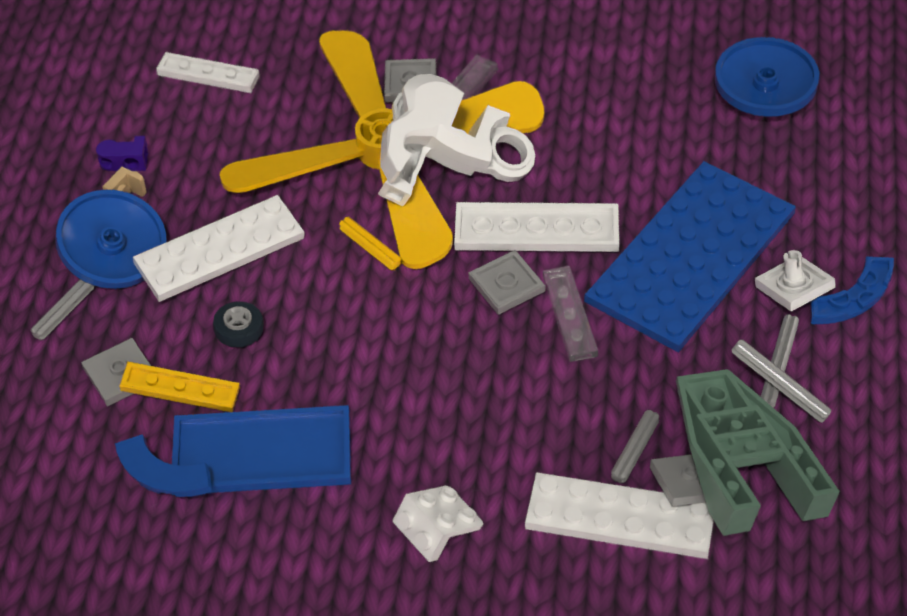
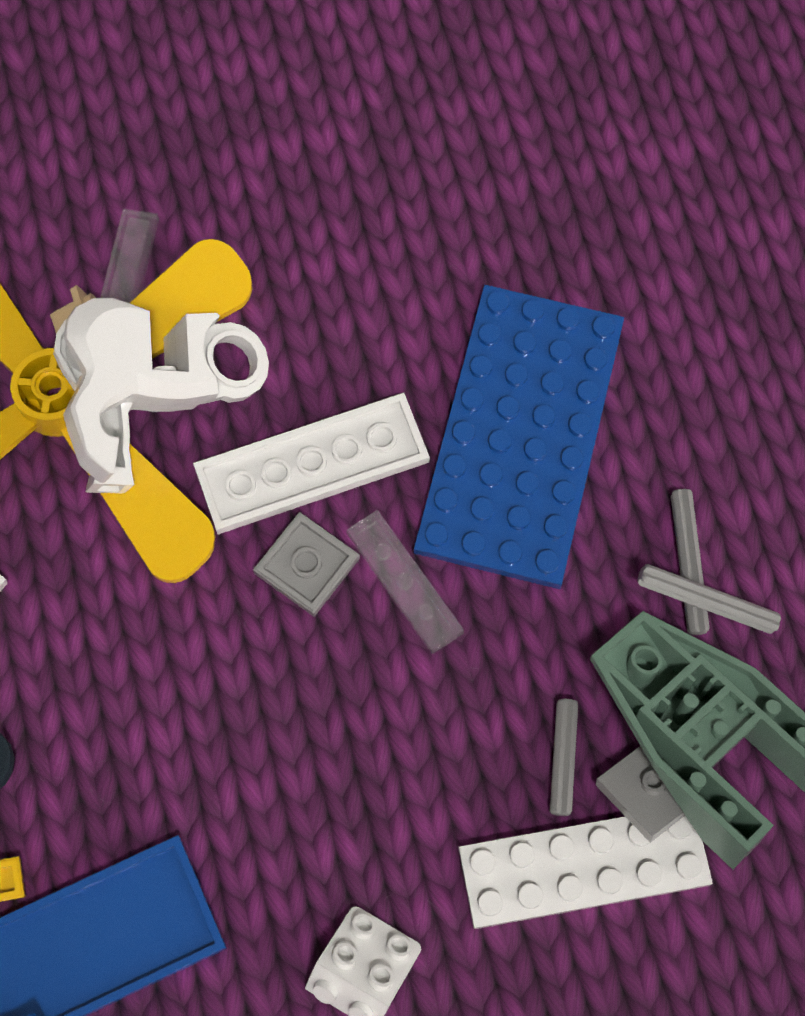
camera: 25 degrees left, 20 degrees up
(370, 243) = (101, 564): yellow axle -> none
(399, 71) = (46, 276): light grey plate -> none
(767, 76) = (517, 127): blue dish -> none
(794, 281) = (669, 439): white plate -> none
(857, 299) = (749, 425): blue tile -> none

